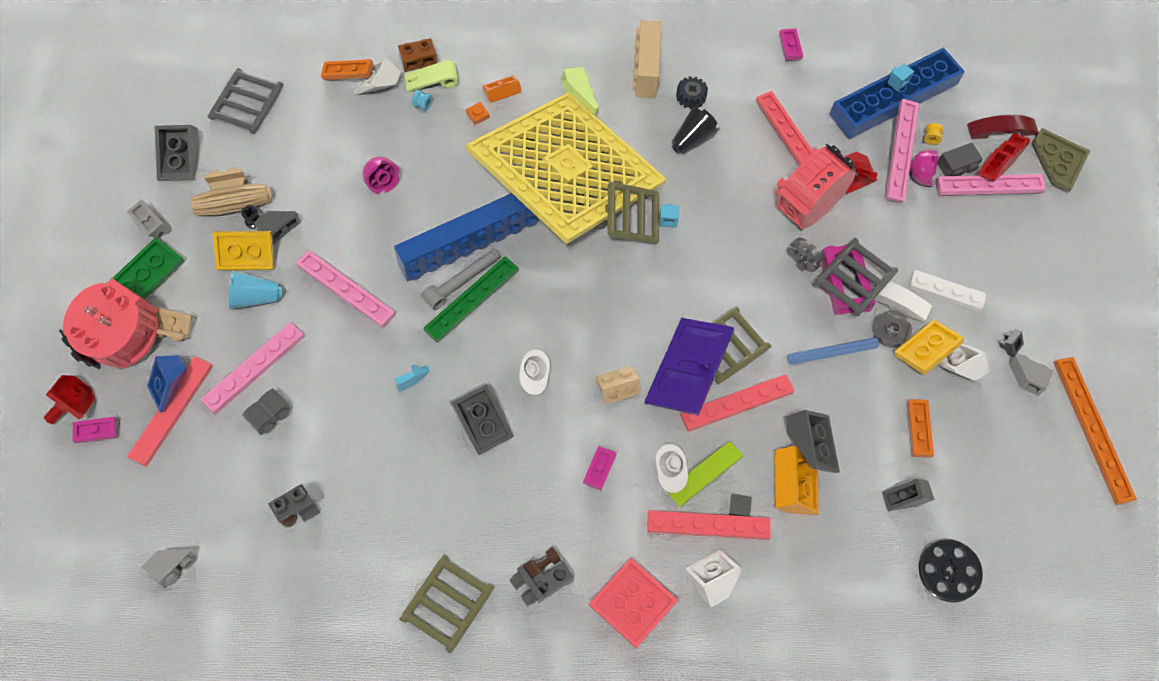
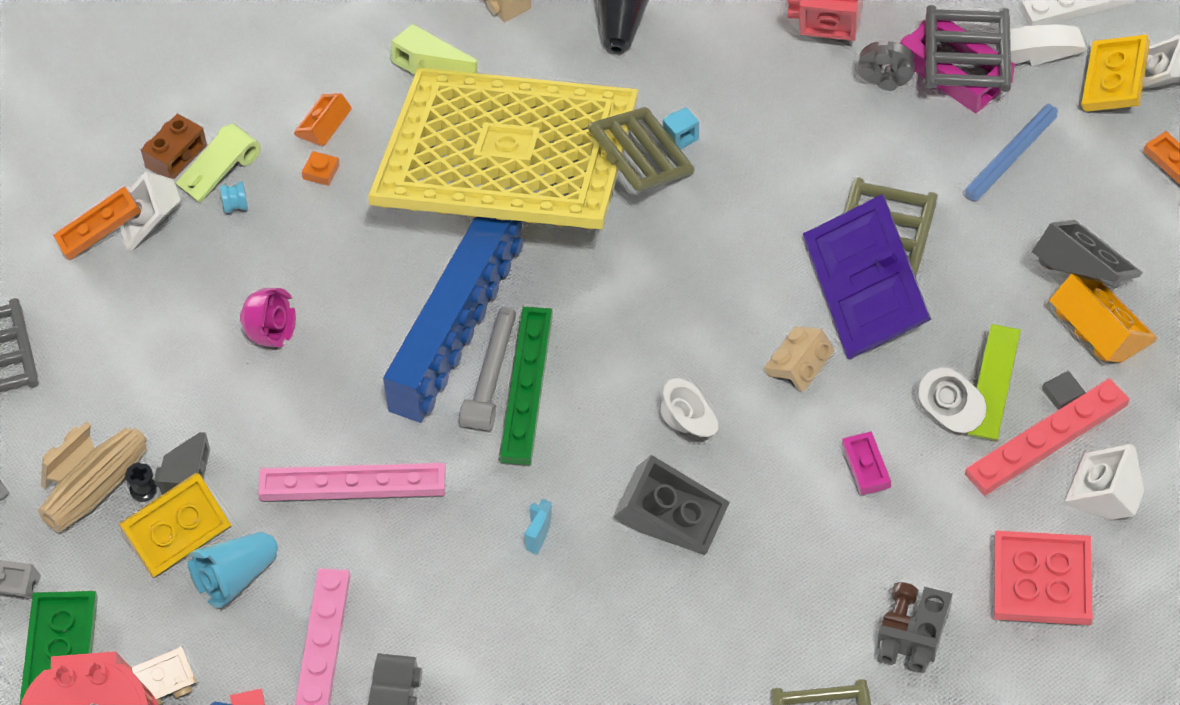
camera: 30 degrees left, 10 degrees down
(739, 402) = (957, 282): coral plate -> none
(889, 338) = (1058, 96): flat silver plate -> none

